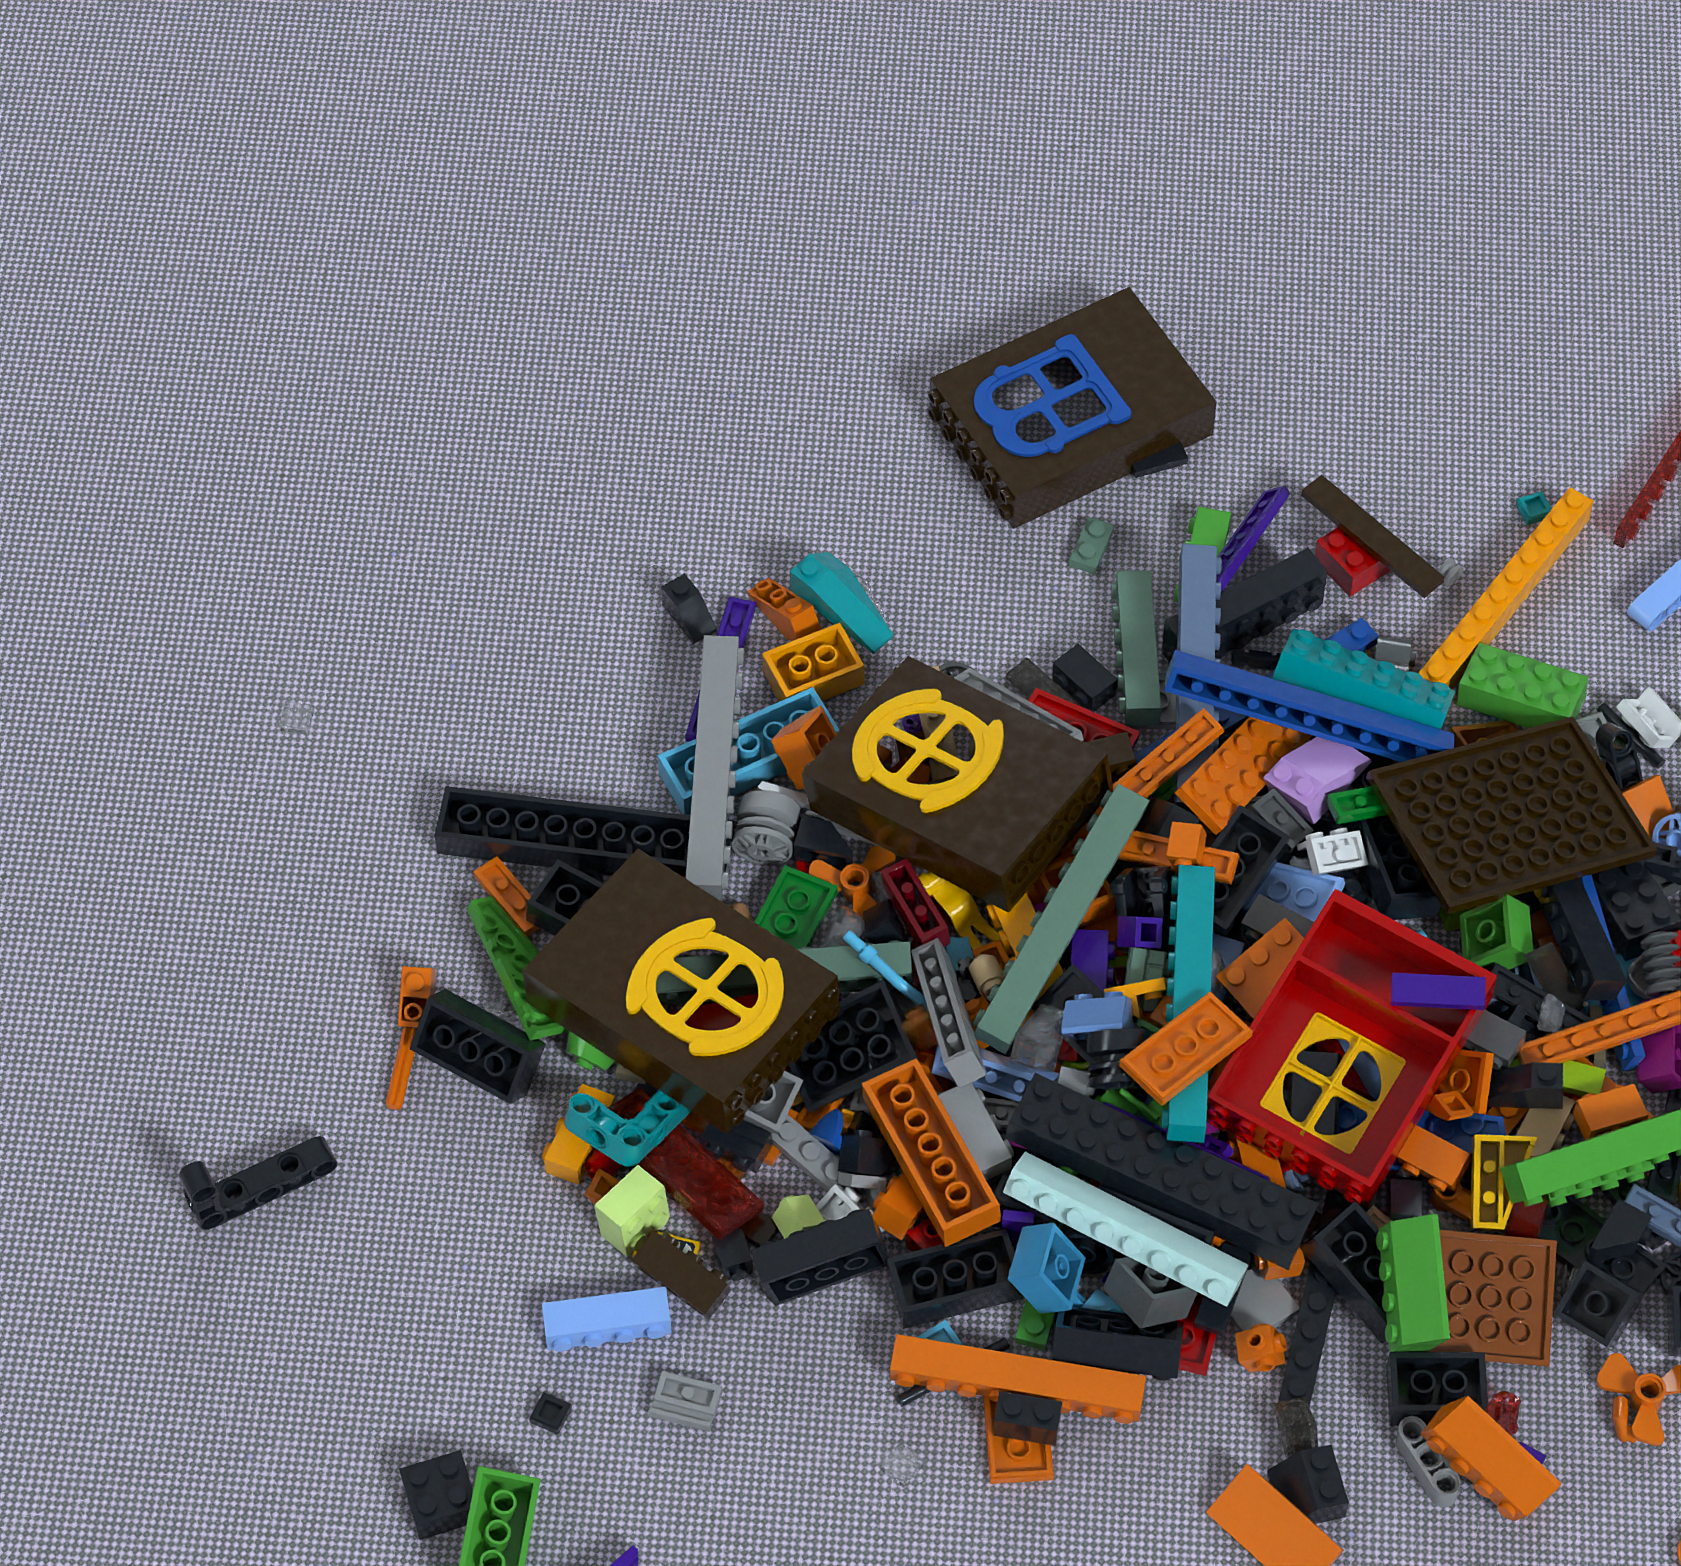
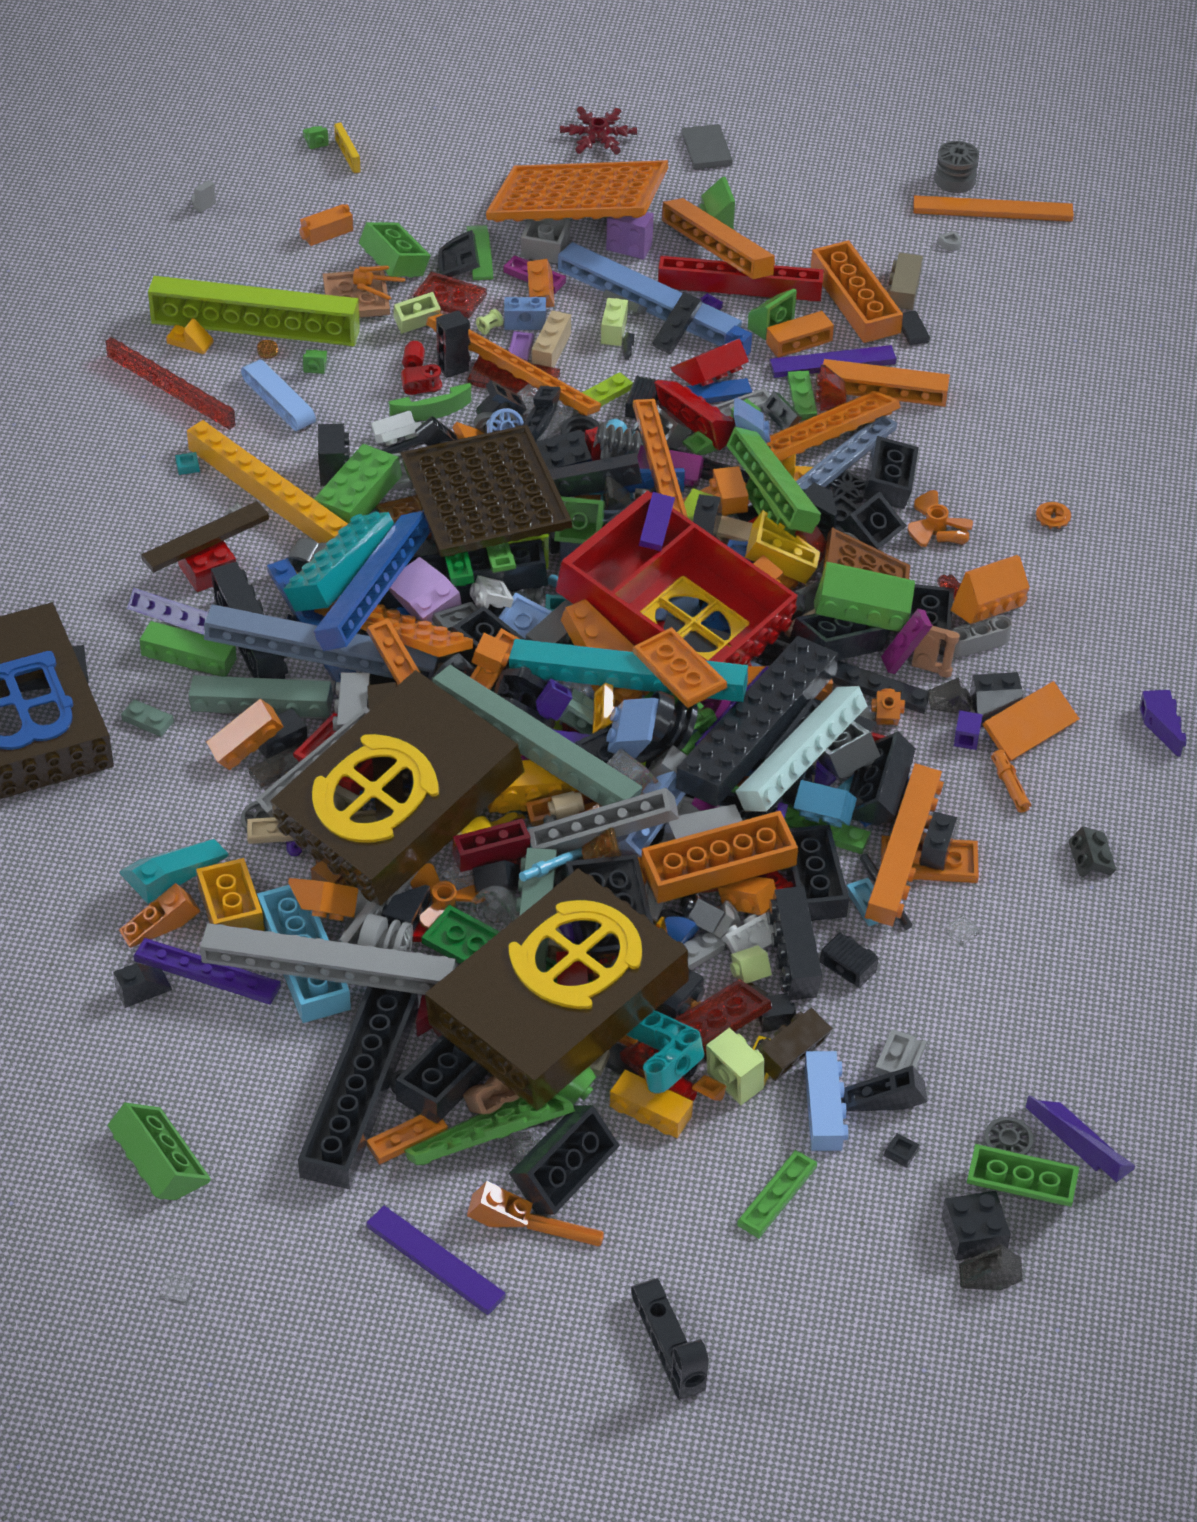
camera: 85 degrees left, 10 degrees down
(352, 948) = (436, 1260): none -> dark purple tile
(379, 1517) = (991, 1270): none -> clear smoke slope
(463, 667) = (157, 1151): none -> bright green slope
(474, 1282) = (777, 1194): none -> bright green tile
(579, 1532) = (1009, 1137): none -> dark grey wheel
(626, 1387) = (887, 1092): none -> black slope
(827, 1332) = (849, 959): none -> black brick
(1059, 636) = (244, 734): none -> brick
(1136, 721) = (352, 697): none -> light grey brick
(1201, 1497) = (1007, 773): none -> orange pin
(1245, 1449) = (968, 730): none -> dark purple brick
(1369, 1353) = (906, 641): none -> magenta plate
(1373, 1396) = (927, 651): none -> nougat plate
(1375, 849) = (501, 558): none -> bright green slope
(1574, 646) = (332, 450): none -> black brick

